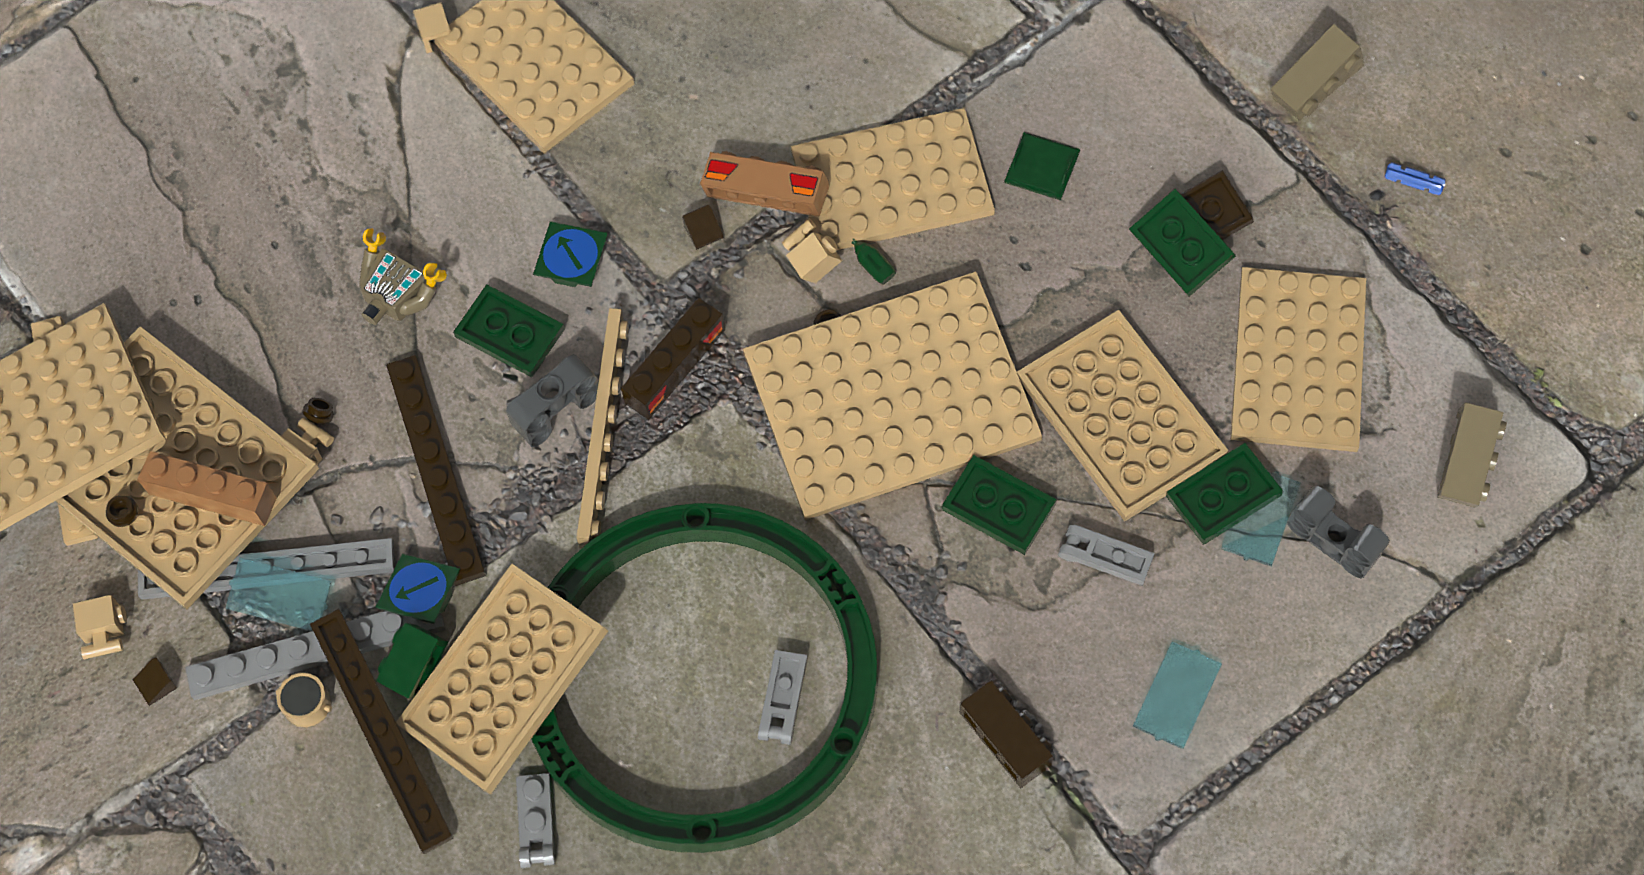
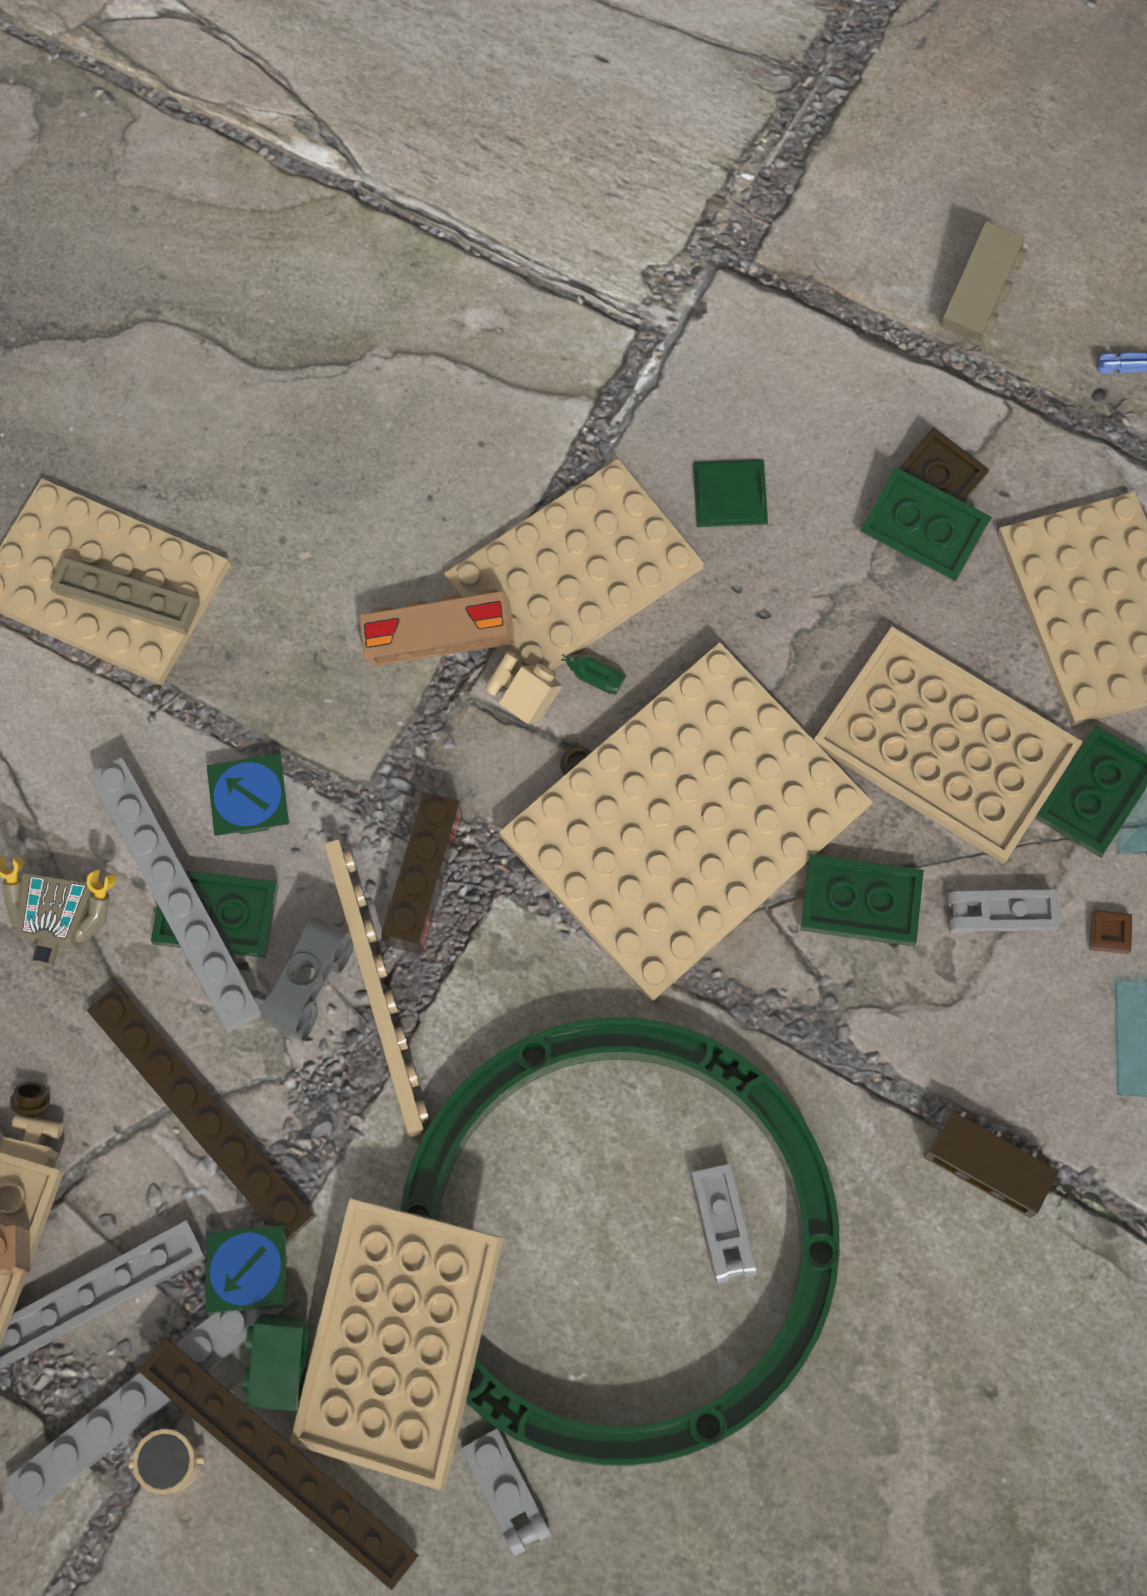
camera: 25 degrees left, 5 degrees up
(277, 594) = (79, 1344): clear light blue piece -> none
(485, 304) = (175, 895): none -> light grey plate
(544, 76) = (125, 595): none -> dark tan tile
(702, 227) = (385, 705): dark brown slope -> none
(1185, 603) = (1111, 932): none -> reddish brown tile

